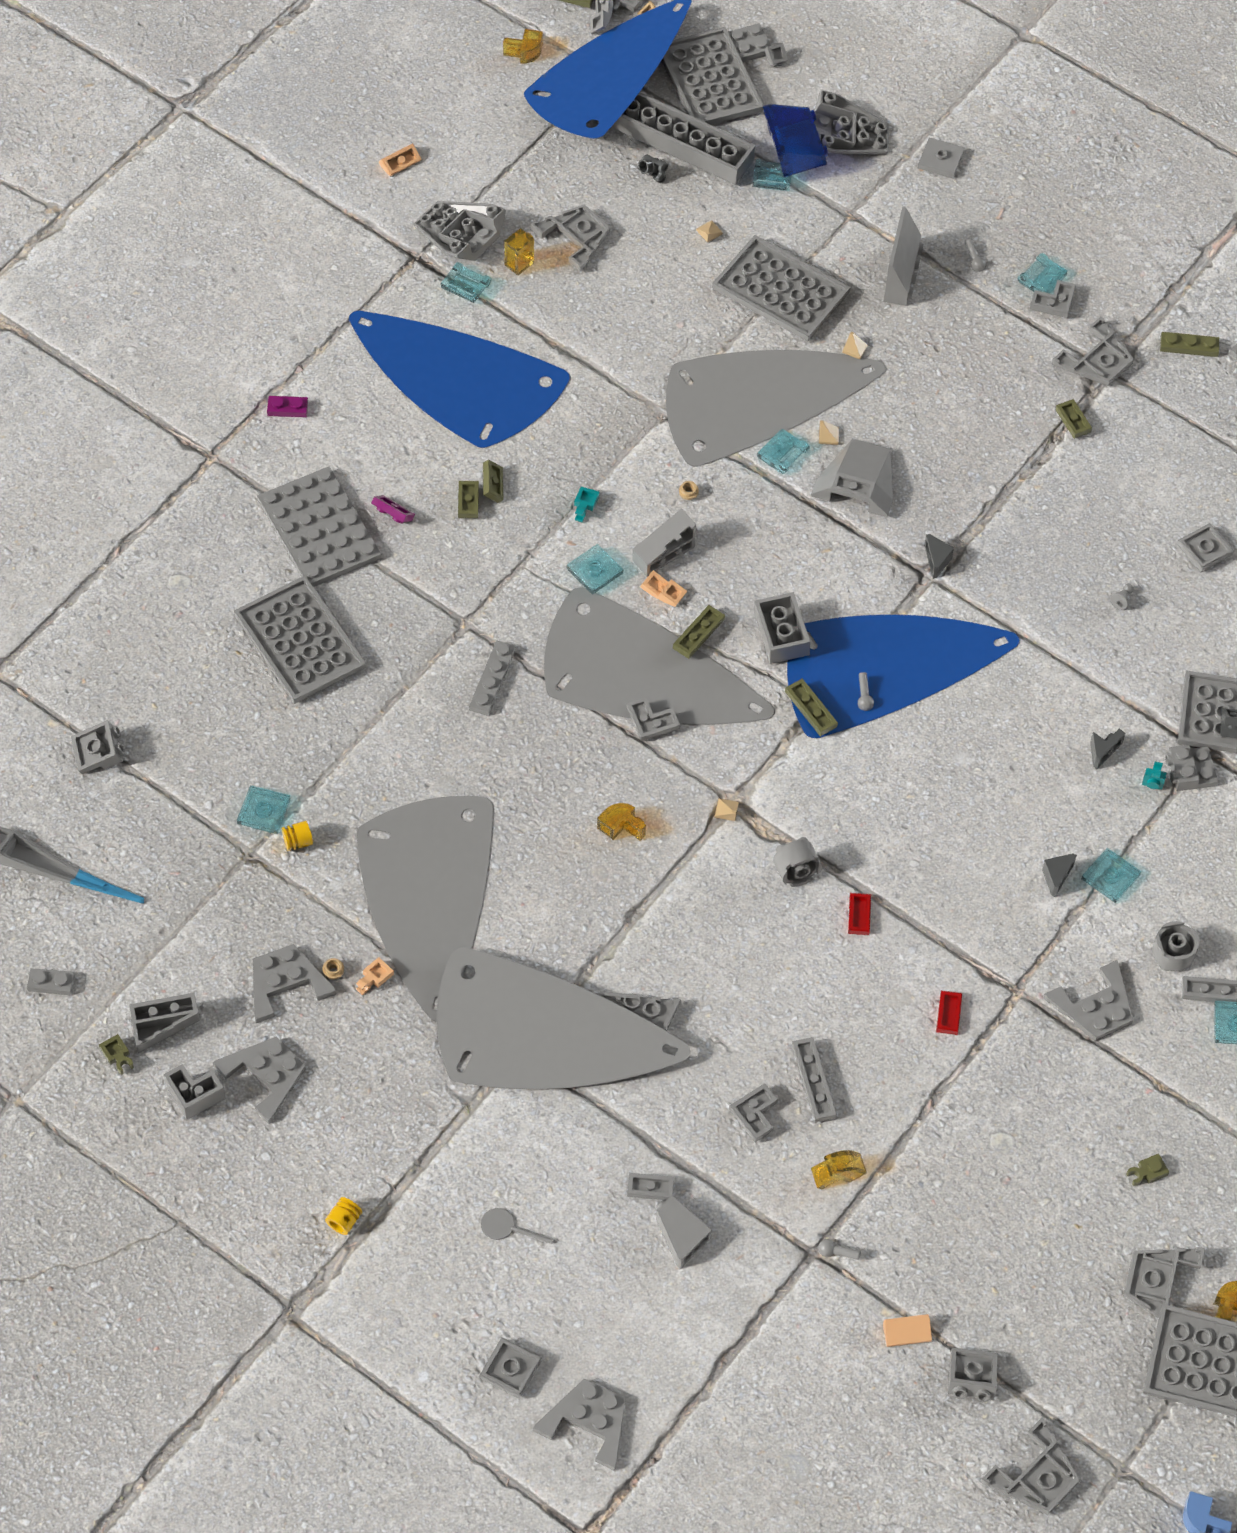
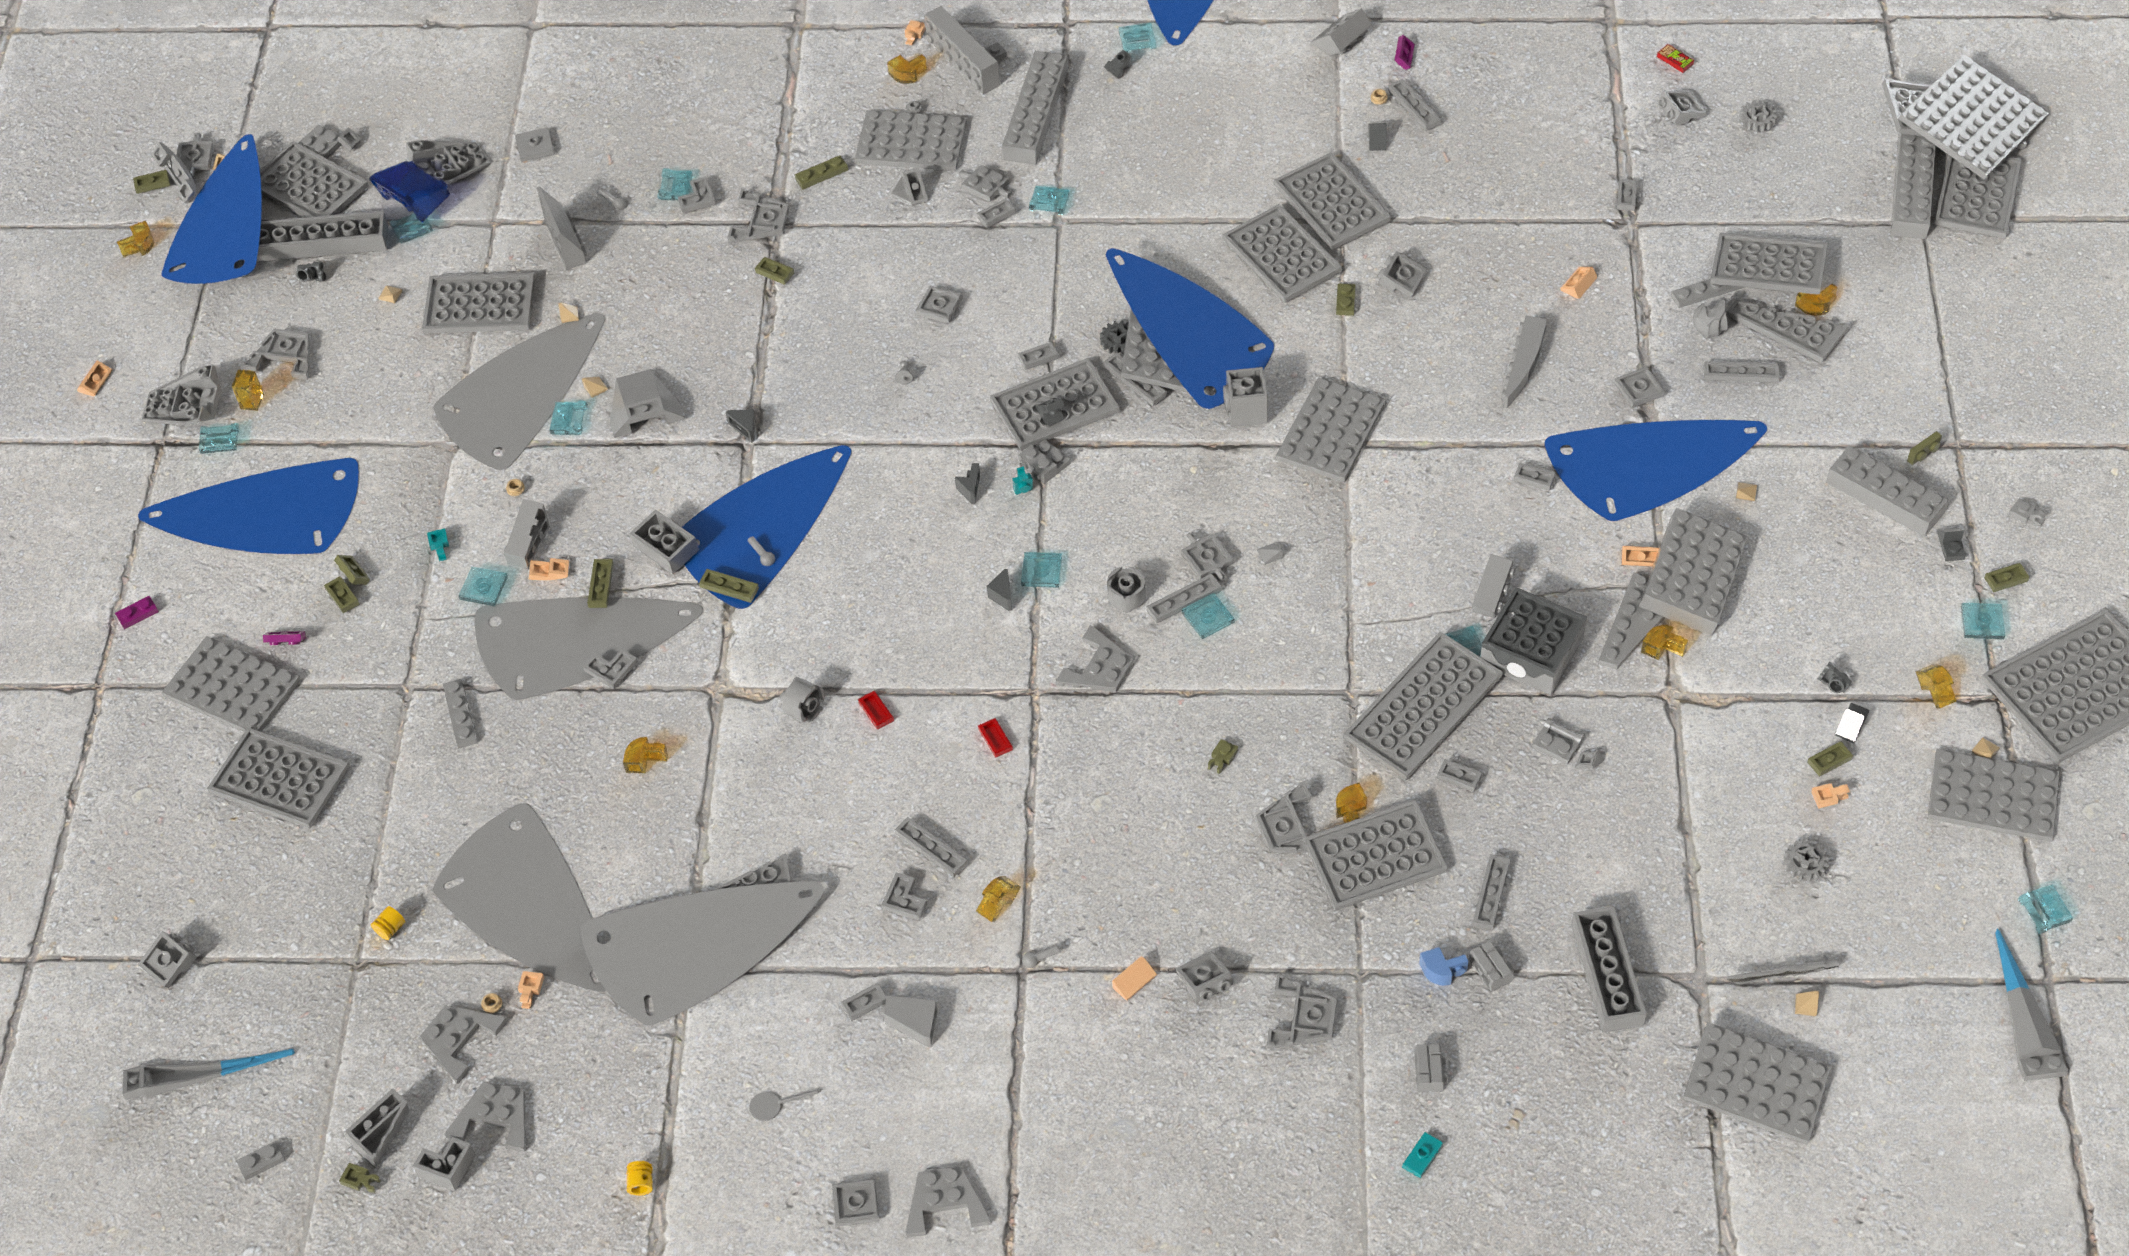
camera: 30 degrees left, 5 degrees down
(263, 809) = (343, 921): clear light blue plate -> none
(726, 809) = (718, 697): tan slope -> none

